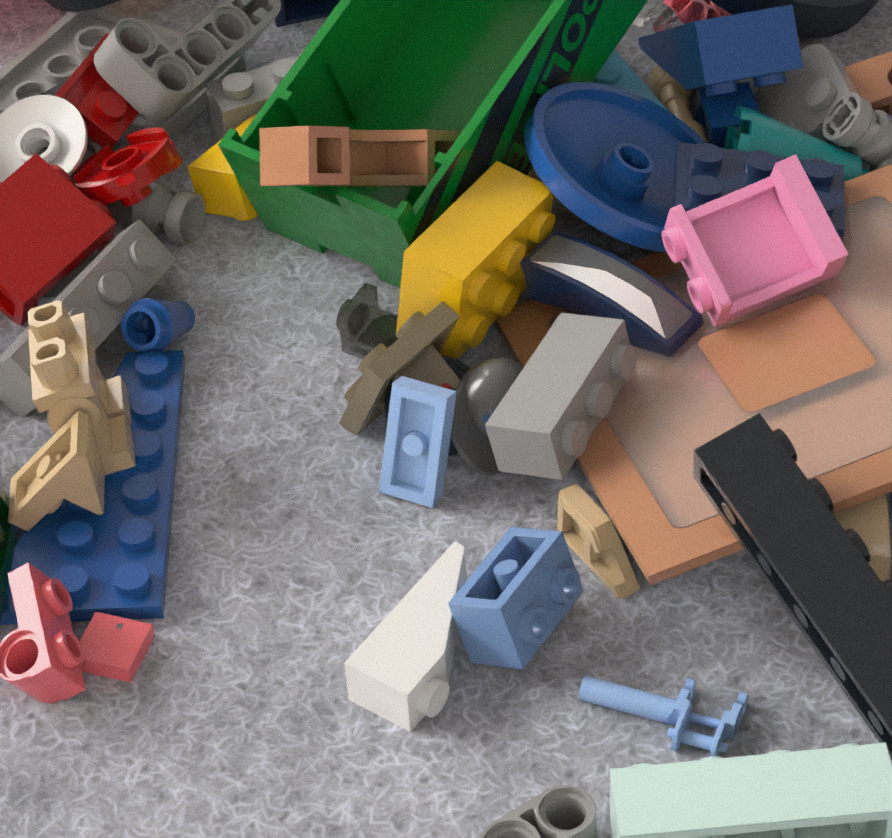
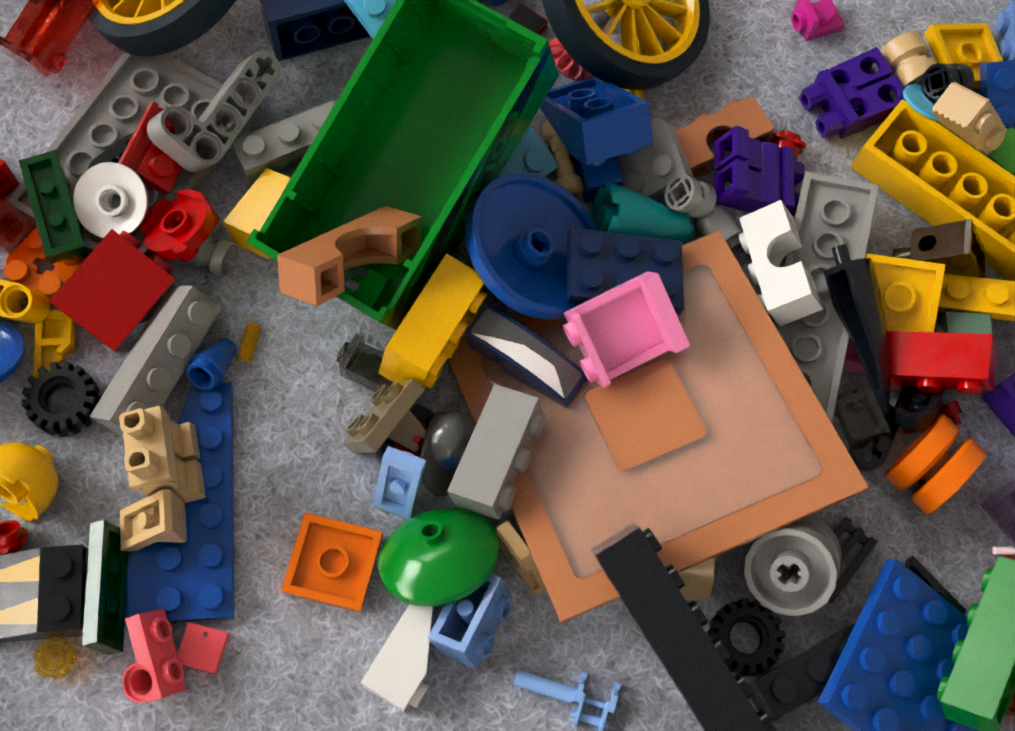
camera: 15 degrees left, 25 degrees up
(213, 311) = (249, 342): none -> yellow piece
(314, 548) = (332, 562): none -> orange plate
(469, 516) = (439, 556): none -> green dish

